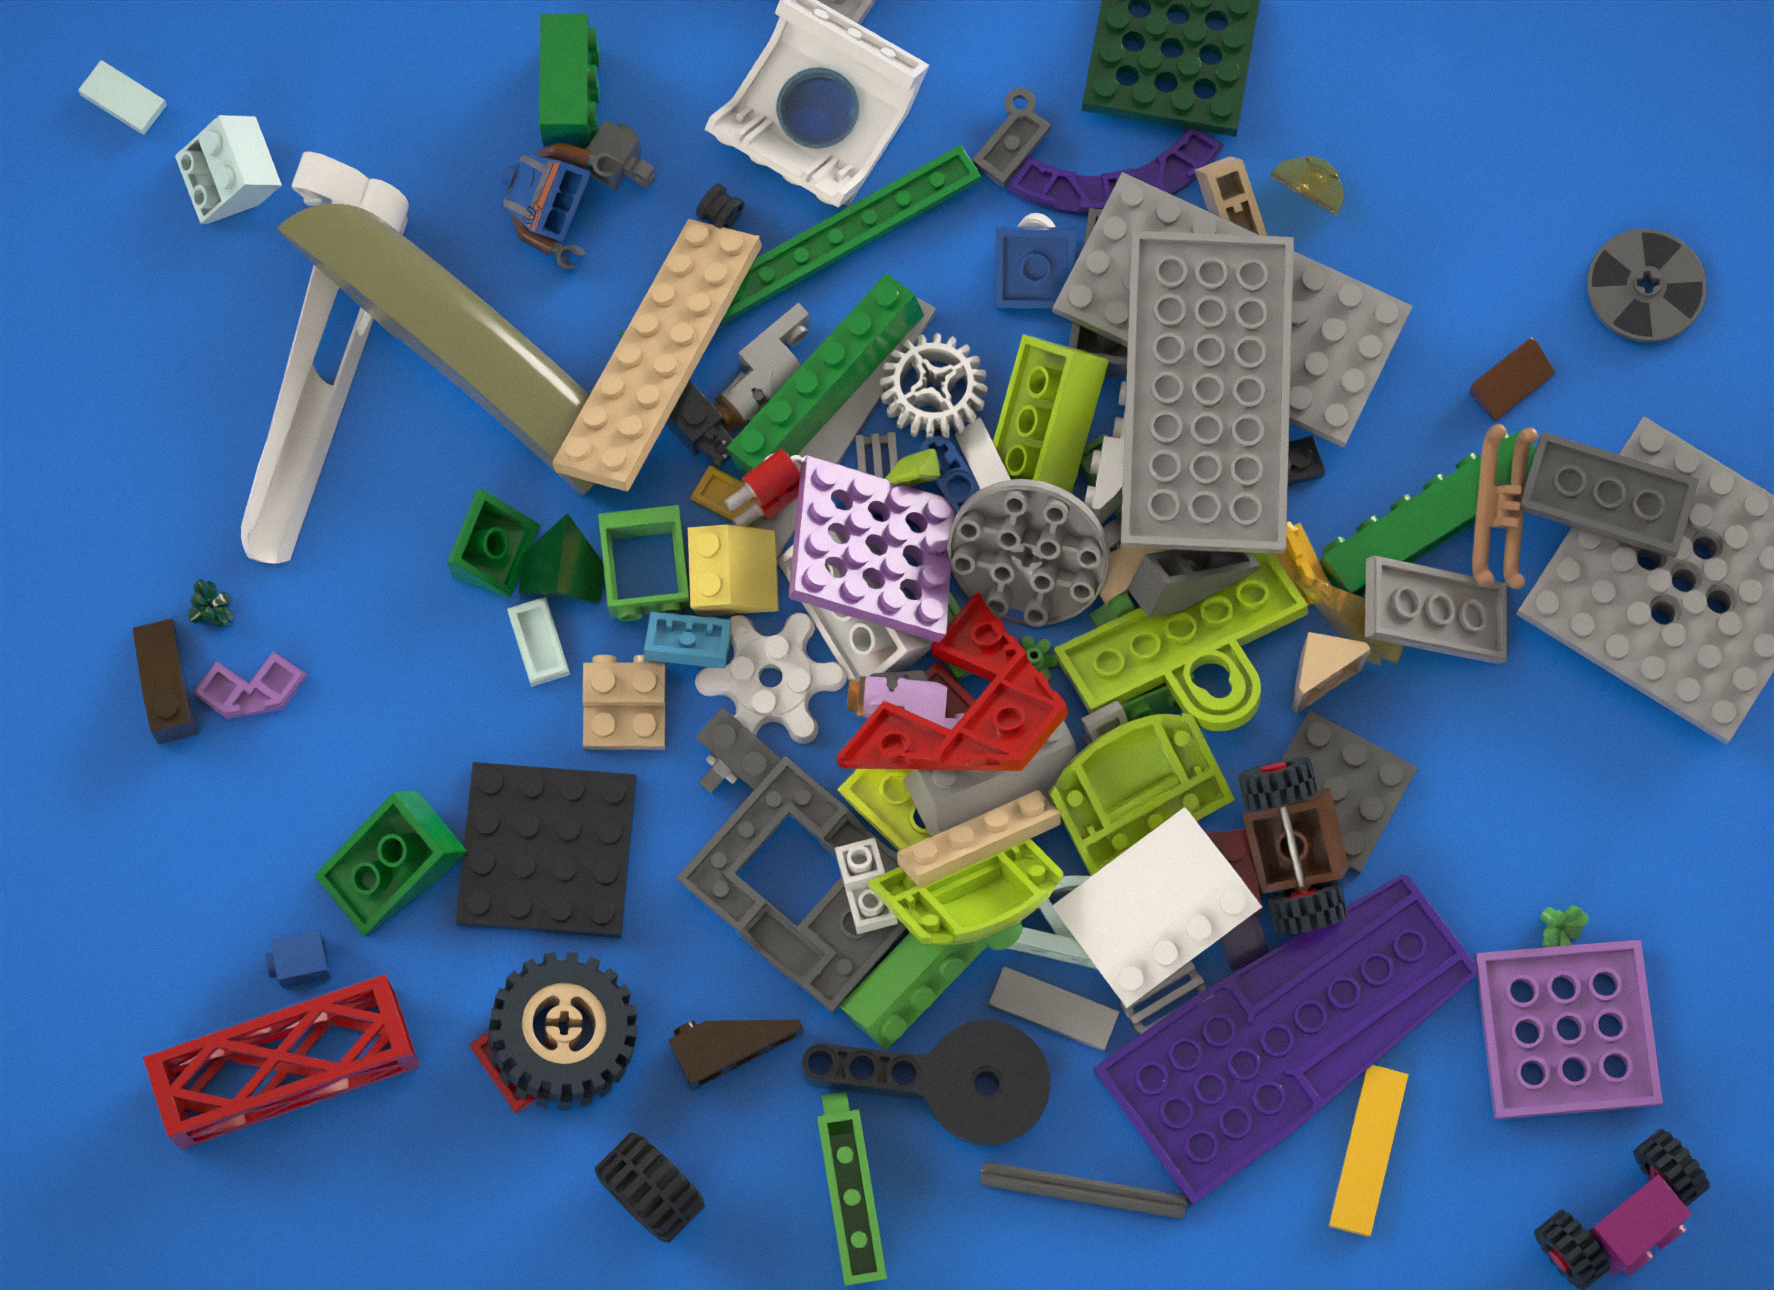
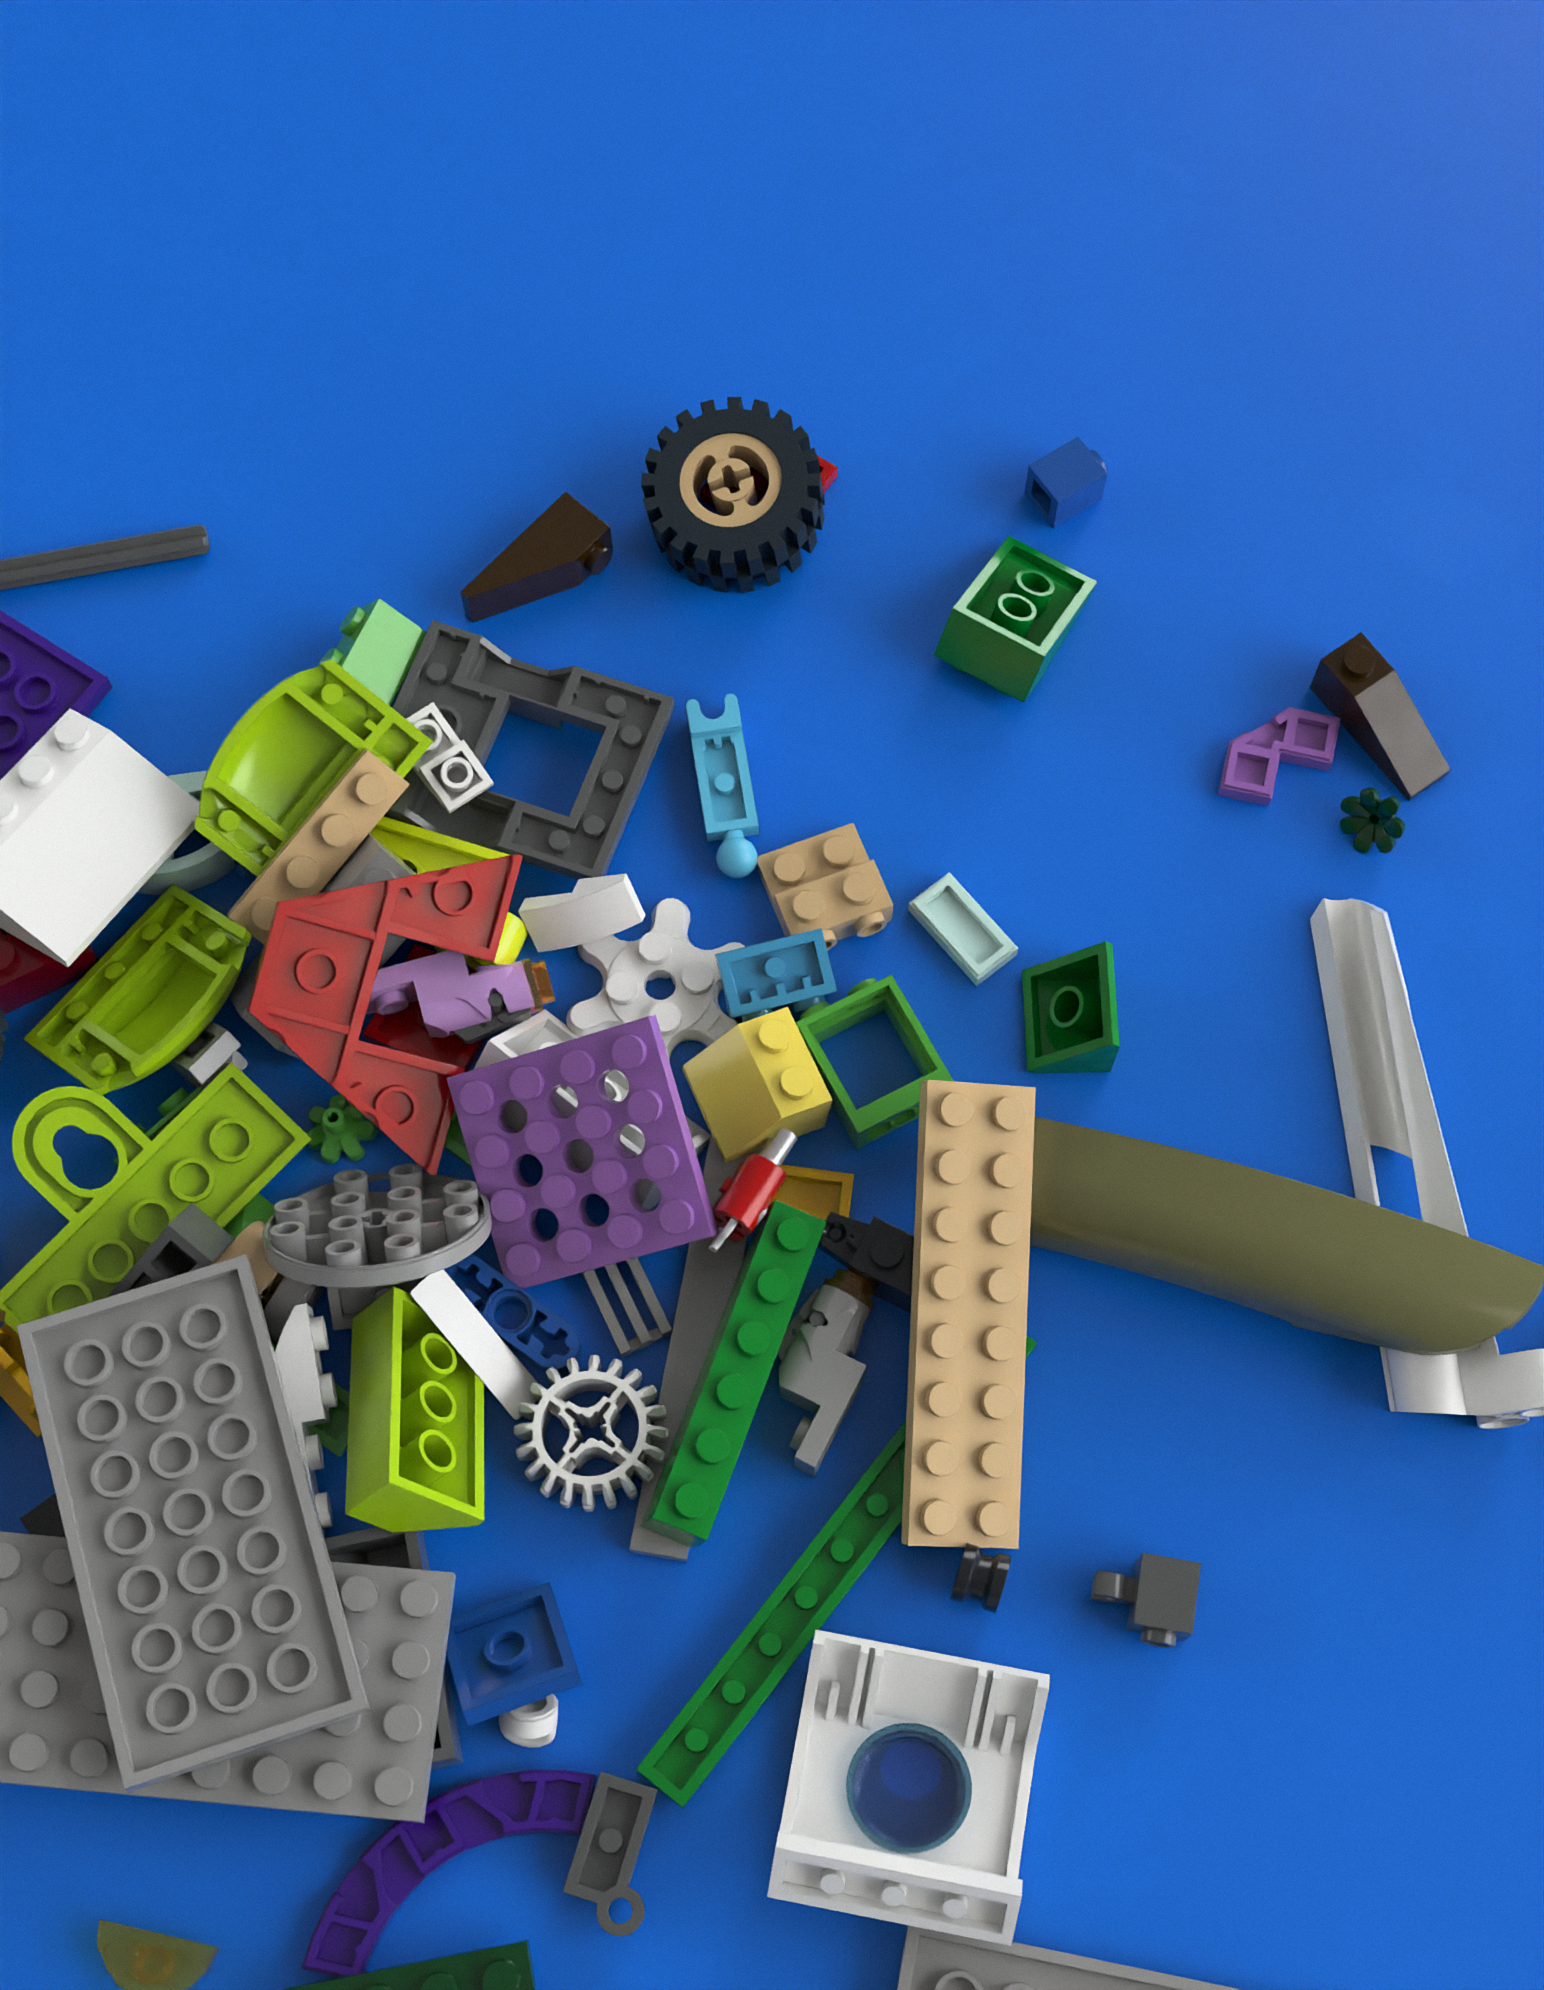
camera: 160 degrees right, 5 degrees down
(243, 1046) = (1138, 302): red piece -> none
(546, 193) = (1220, 1492): torso -> none
(546, 850) = (844, 701): black plate -> none
(562, 566) = (971, 1010): dark green slope -> none
(568, 80) = (1270, 1666): green brick -> none
(649, 1187) = (566, 368): black tyre -> none
(663, 810) = (724, 785): none -> medium azure plate
(734, 752) = (670, 874): dark grey hinge -> none
(796, 735) = (589, 913): none -> white slope
(850, 1191) = (344, 449): bright green hinge -> none
(915, 469) = (574, 1301): lime slope -> none
(948, 1079) = (274, 603): black beam -> none
(1053, 1009) = (172, 733): light grey tile -> none
(1230, 194) = (255, 1866): tan slope -> none

